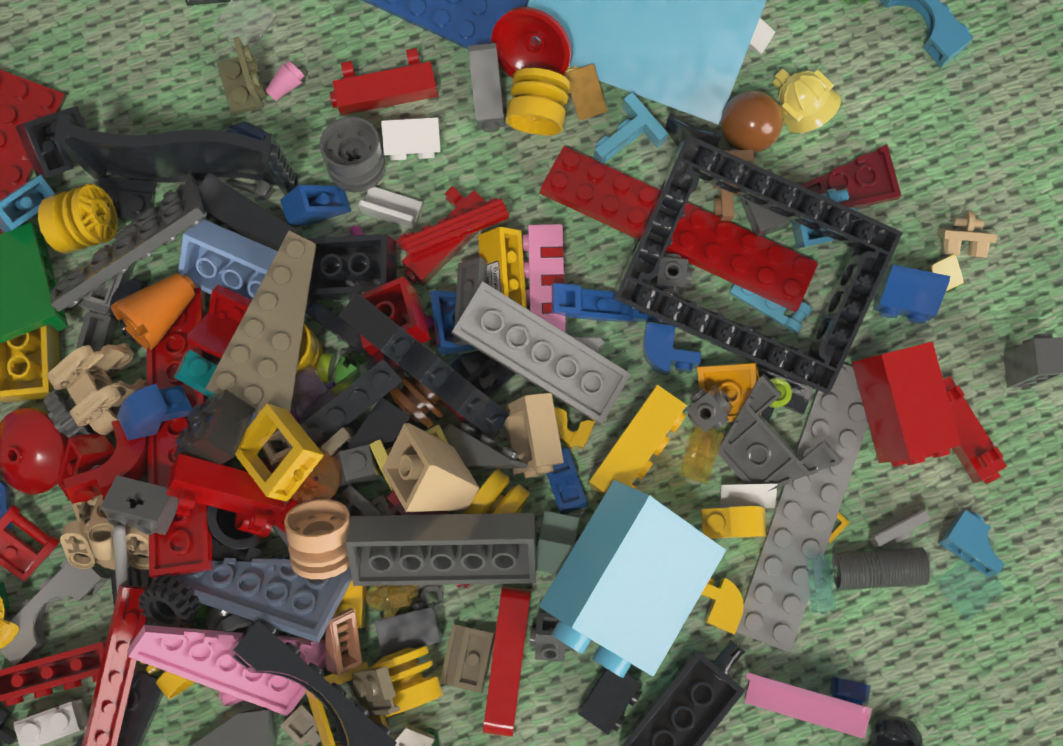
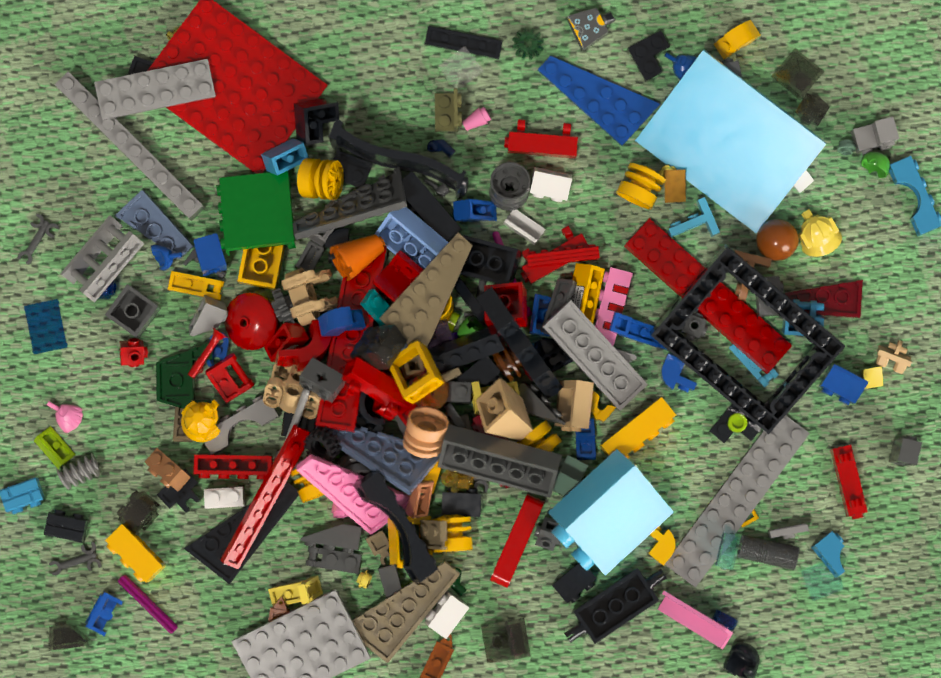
camera: 10 degrees right, 5 degrees up
(467, 658) = (492, 532): dark tan plate -> none
(486, 87) = (609, 166): slope -> none
(520, 49) = (647, 147): red dish -> none
(678, 130) = (734, 238): black slope -> none
(701, 455) = (677, 448): clear yellow hips -> none
(716, 402) = (690, 420): dark grey brick -> none
(733, 379) = (707, 414): light orange slope -> none
(734, 522) = (685, 496): yellow brick -> none
(748, 495) = (699, 482): white sticker -> none
(761, 453) = (715, 458): dark grey wing -> none
(906, 405) = (815, 454): red brick -> none

